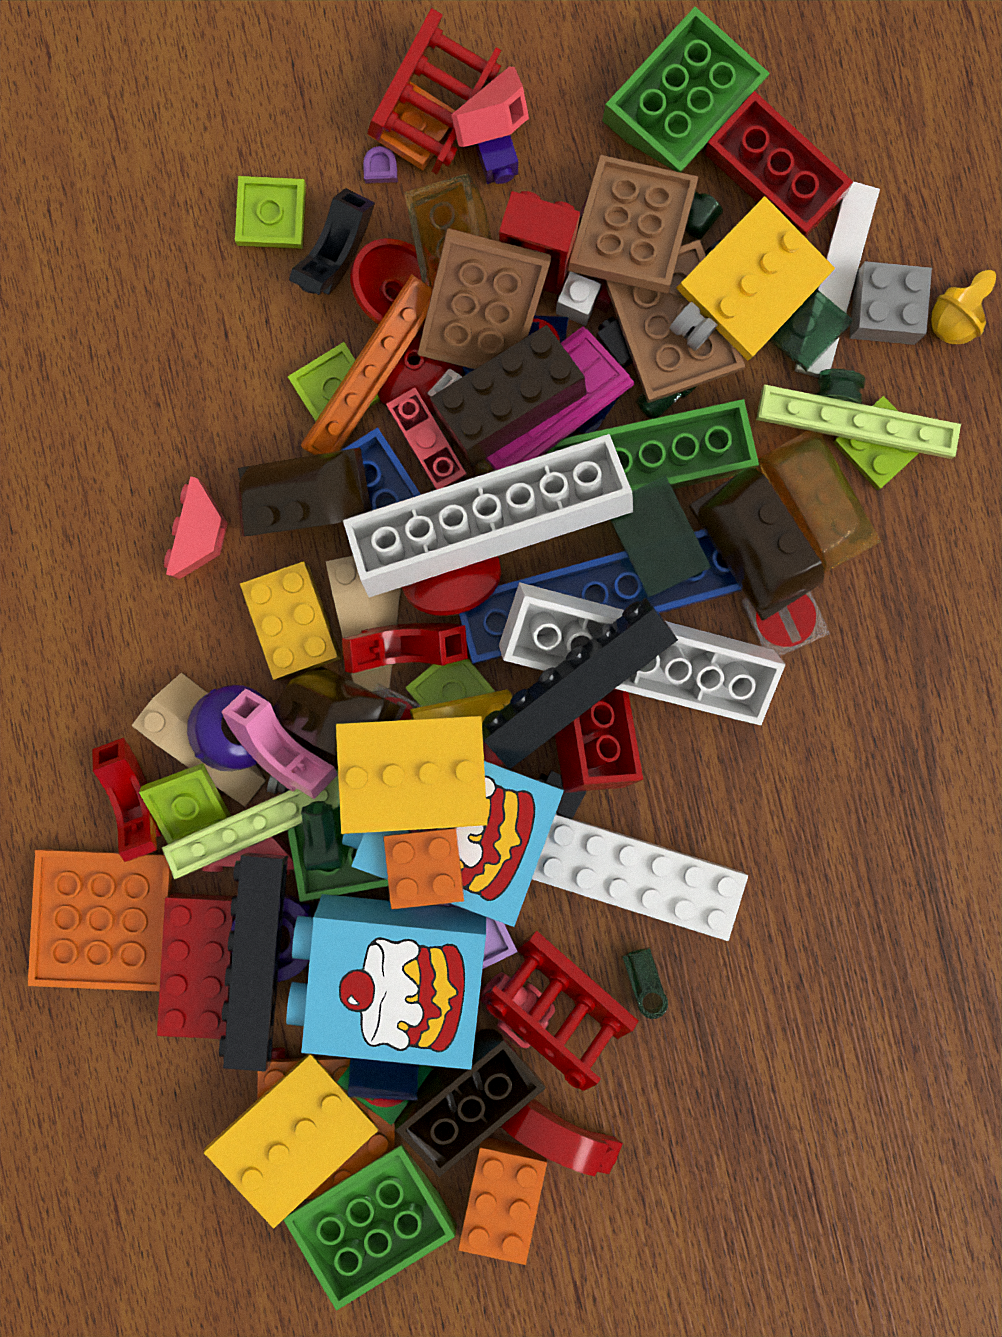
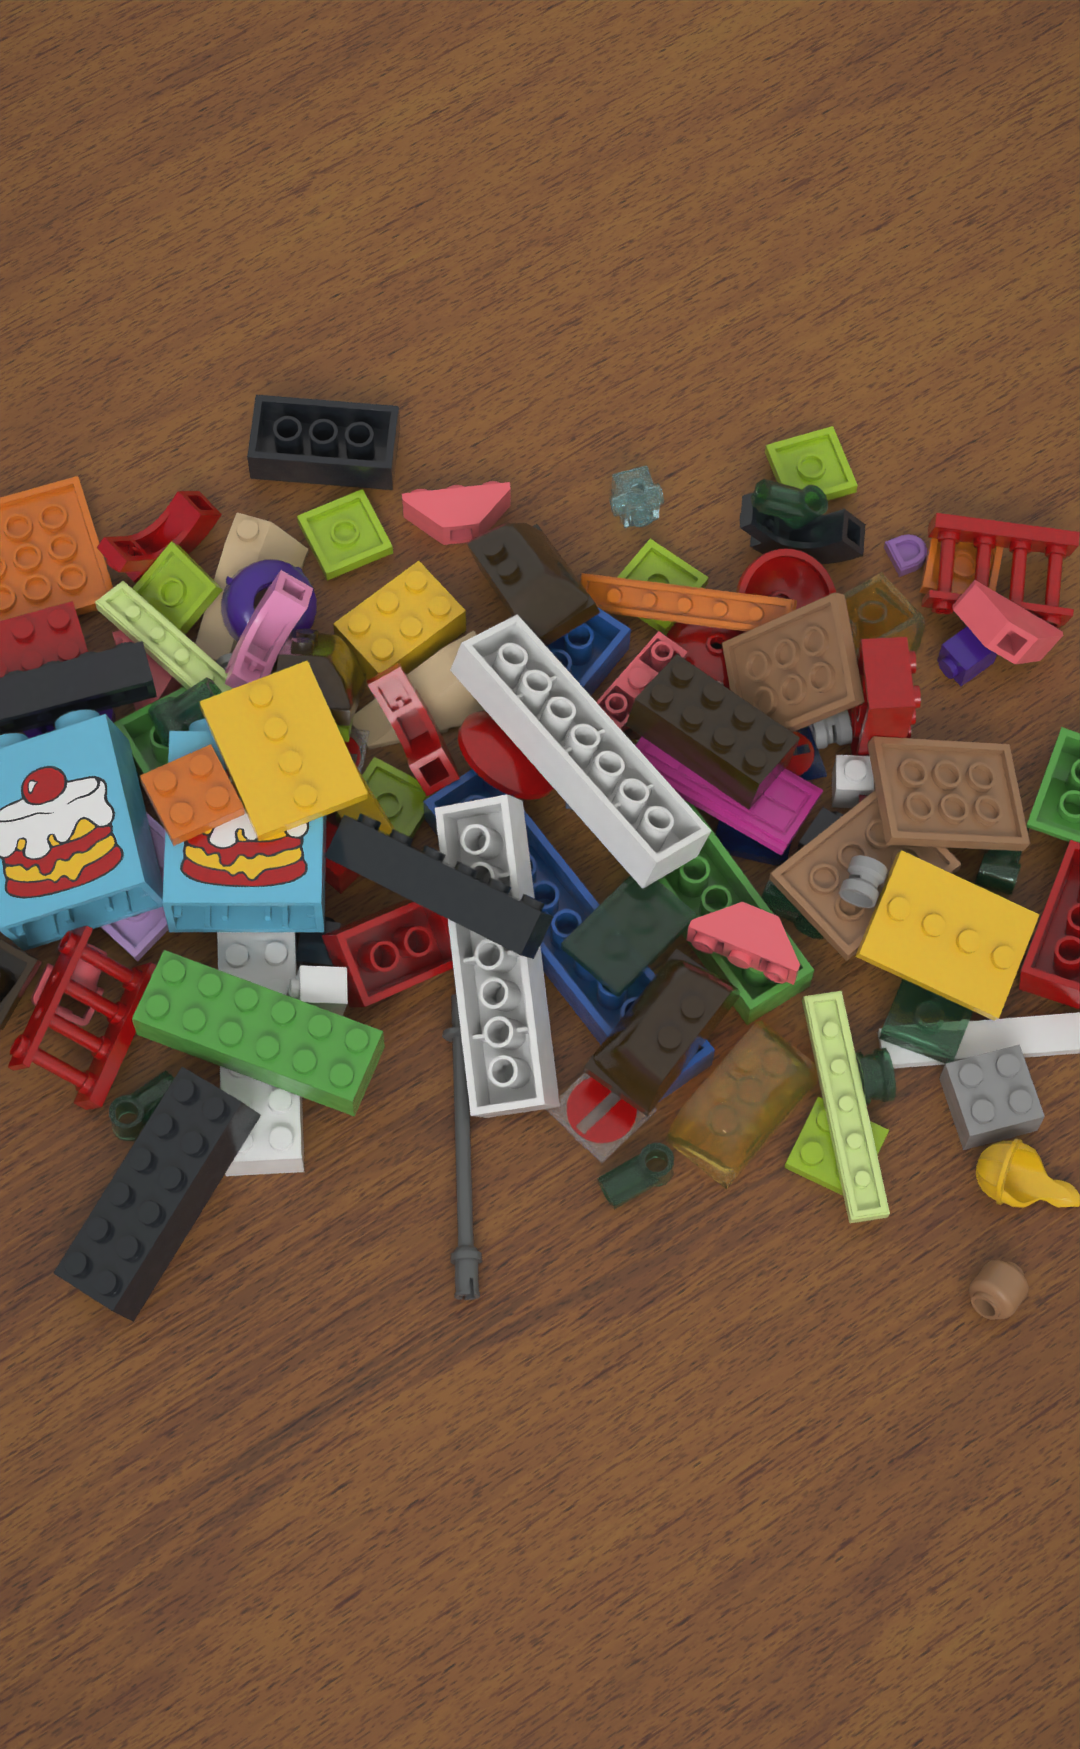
camera: 70 degrees right, 20 degrees down
(85, 623) = (324, 442): none -> black brick
(181, 636) = (345, 534): none -> lime plate
(244, 373) = (635, 497): none -> clear light blue brick
(312, 241) = (790, 503): none -> clear green piece
(616, 812) = (321, 987): none -> white brick
(640, 877) = (259, 1032): none -> bright green brick
(706, 441) = (748, 940): none -> coral slope
(739, 1003) = (157, 1194): none -> black brick
(850, 613) = (634, 1177): none -> clear green piece
(865, 769) = (466, 1255): none -> dark grey bar

